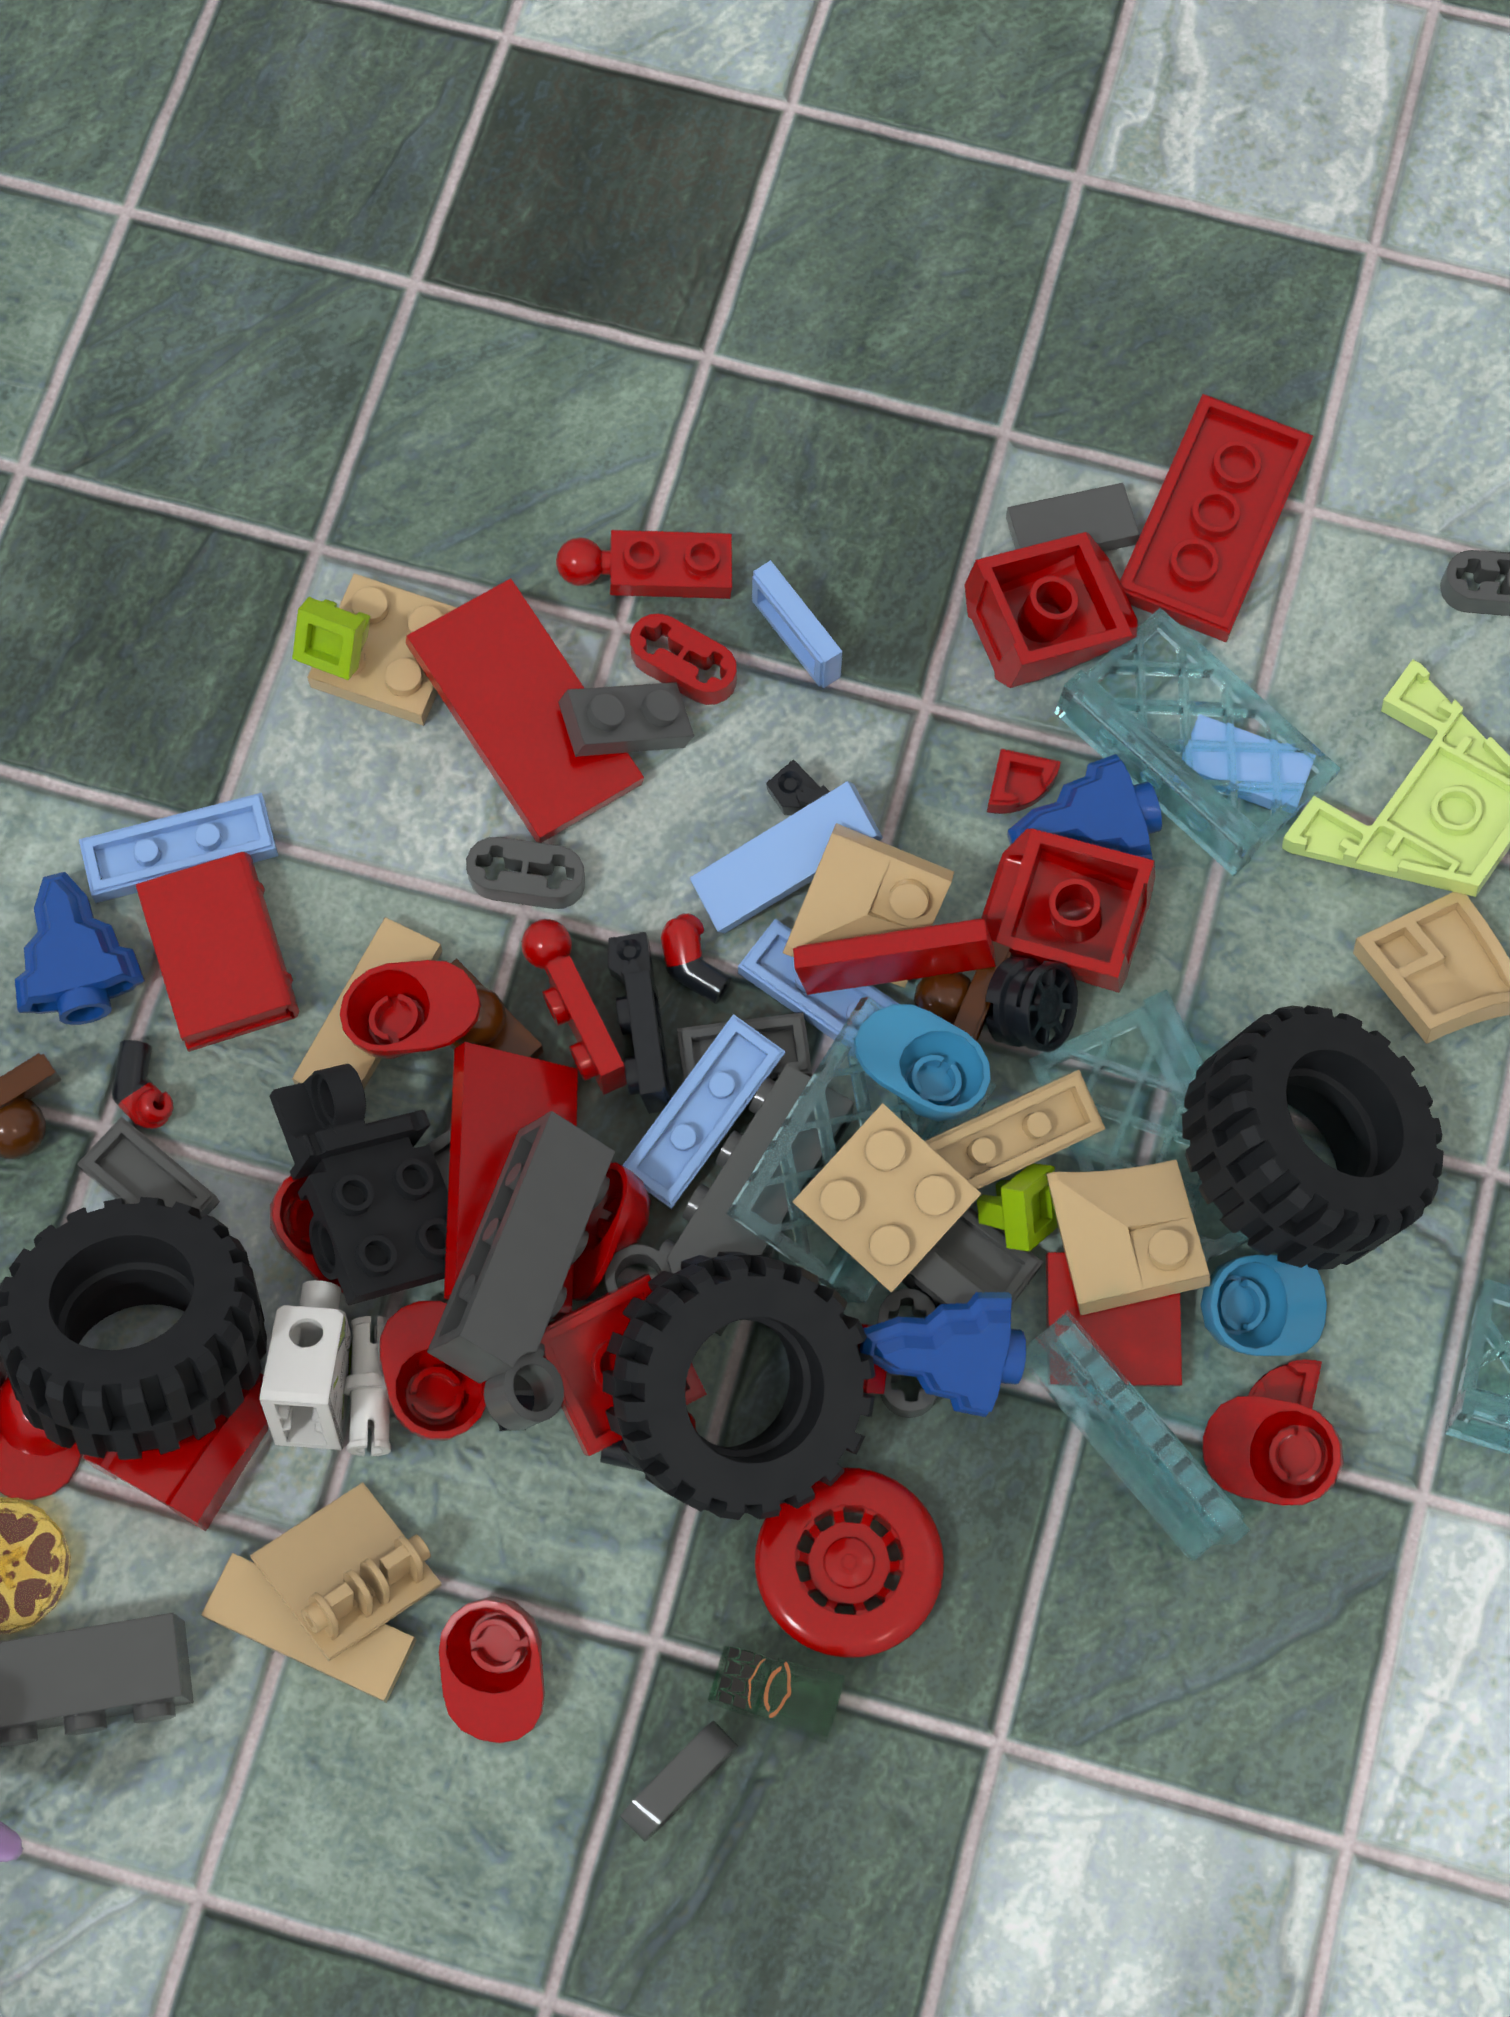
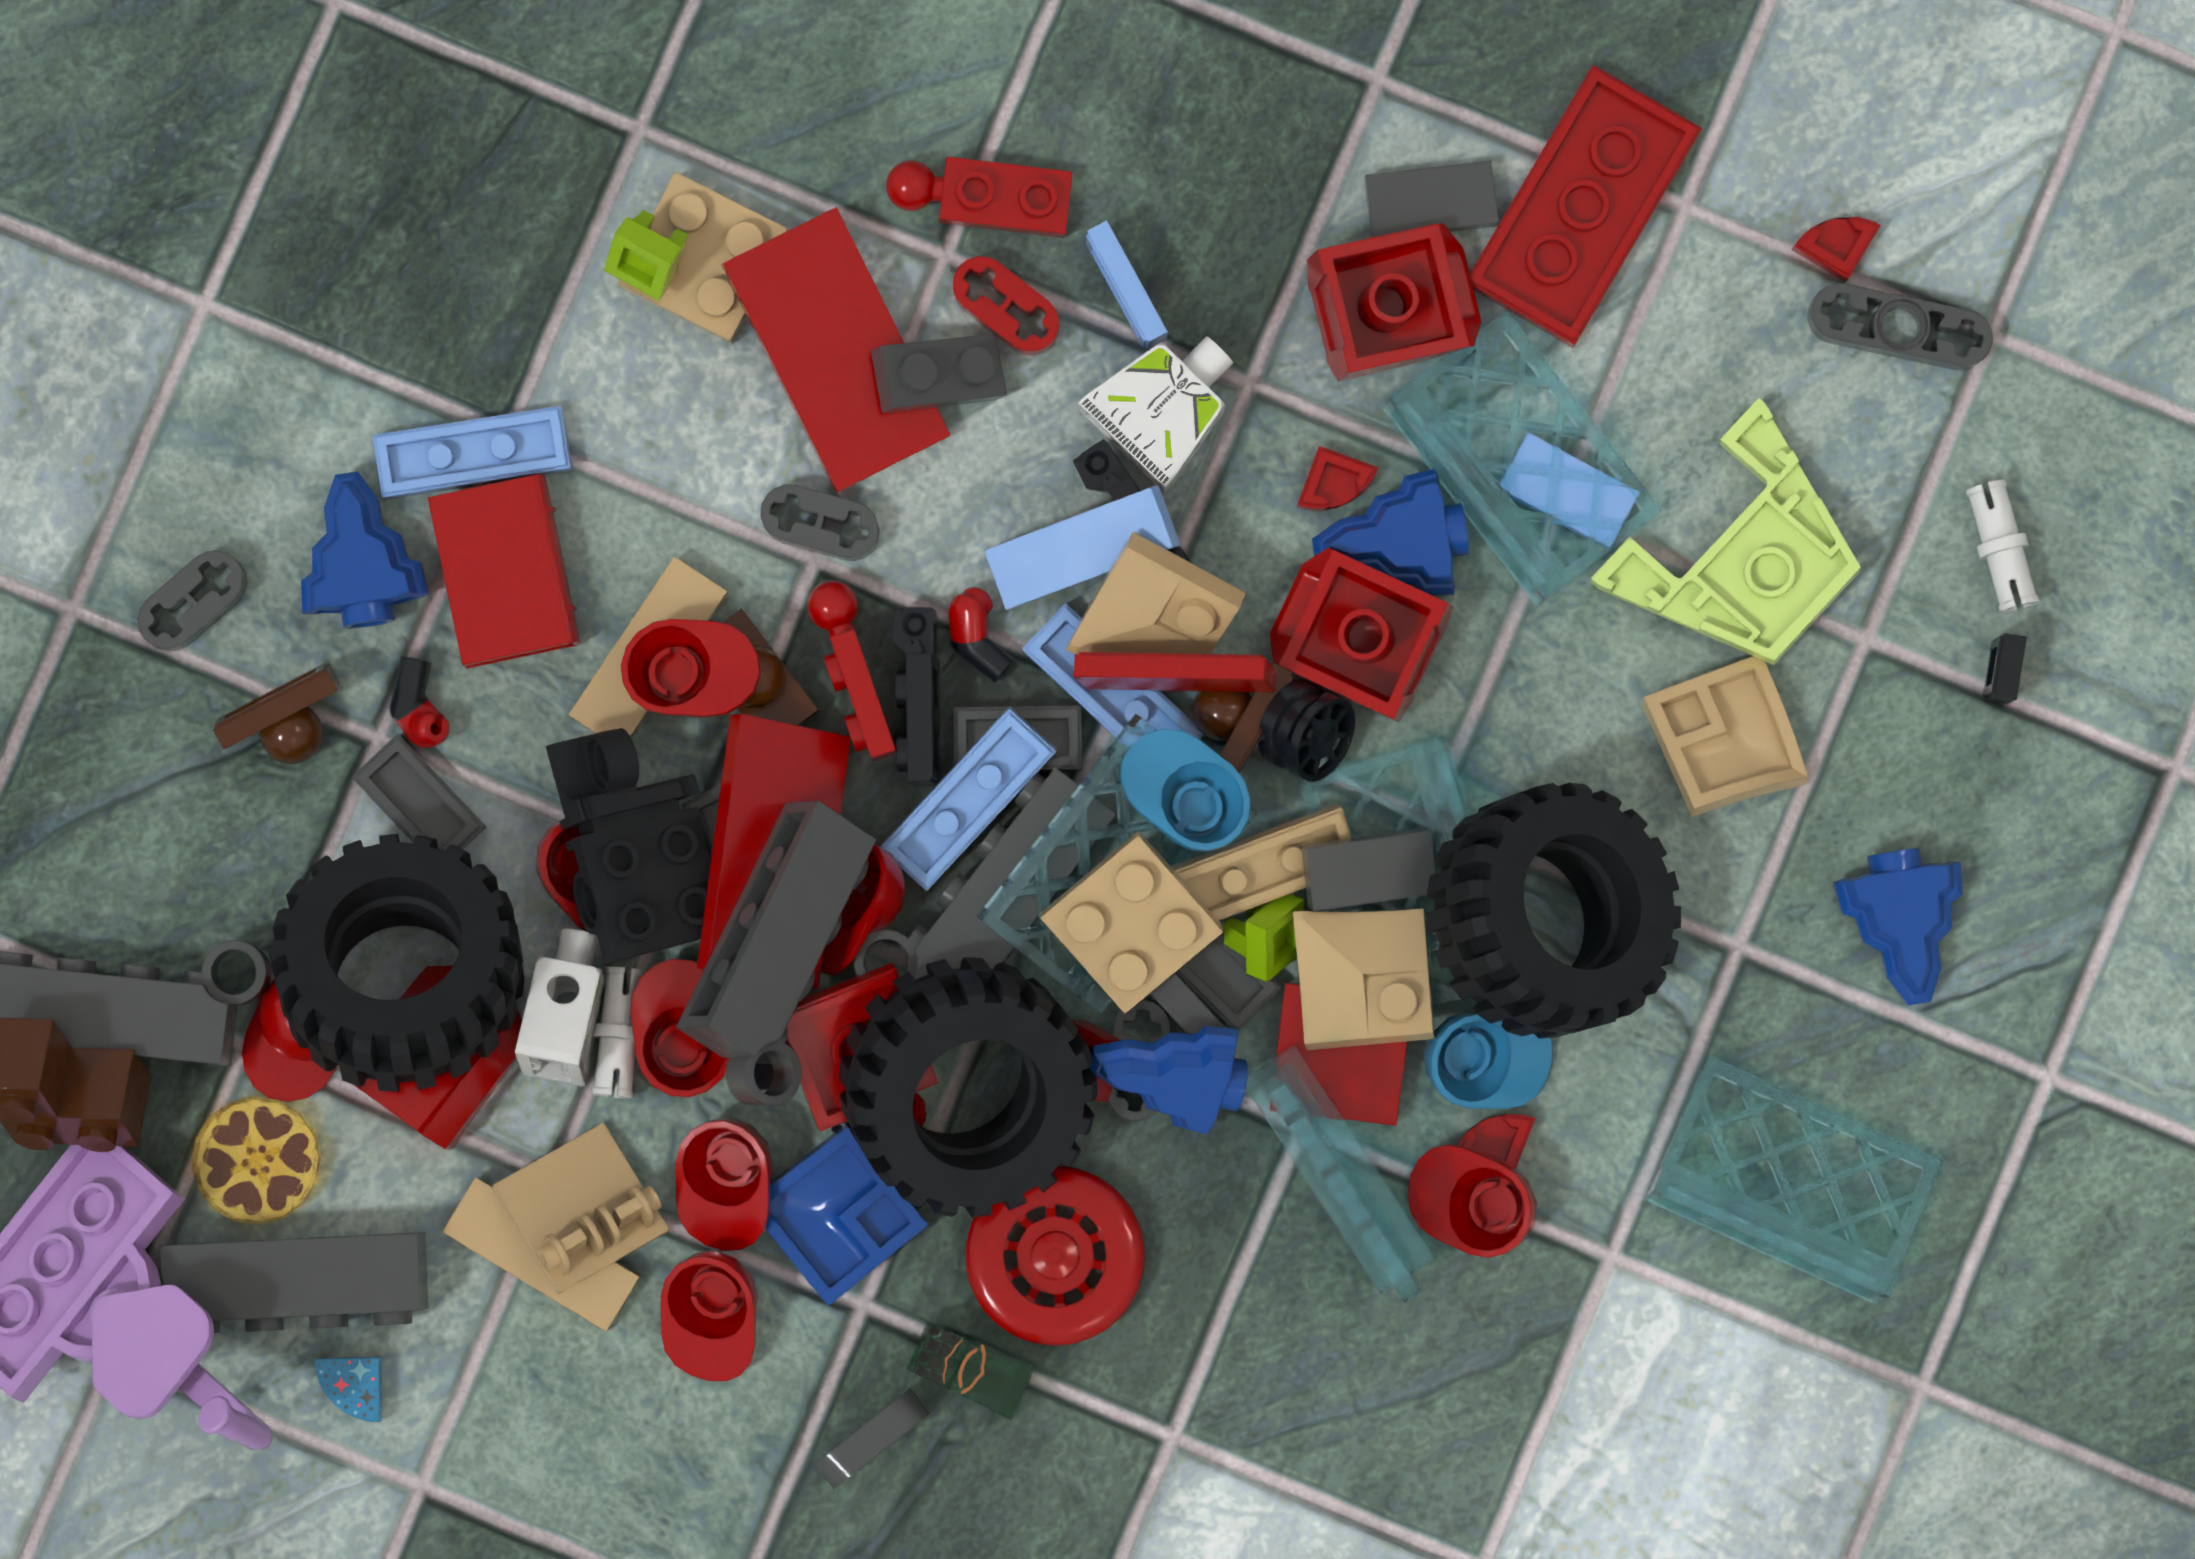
camera: 10 degrees right, 15 degrees up
(117, 1792) = (353, 1385): none -> dark azure tile
(494, 1526) = (724, 1183): none -> red cap
(615, 1545) = (838, 1216): none -> blue plate
(842, 726) = (1160, 408): none -> white torso
(1116, 1125) = (1368, 869): none -> dark grey tile
(1456, 523) = (1837, 244): none -> red tile

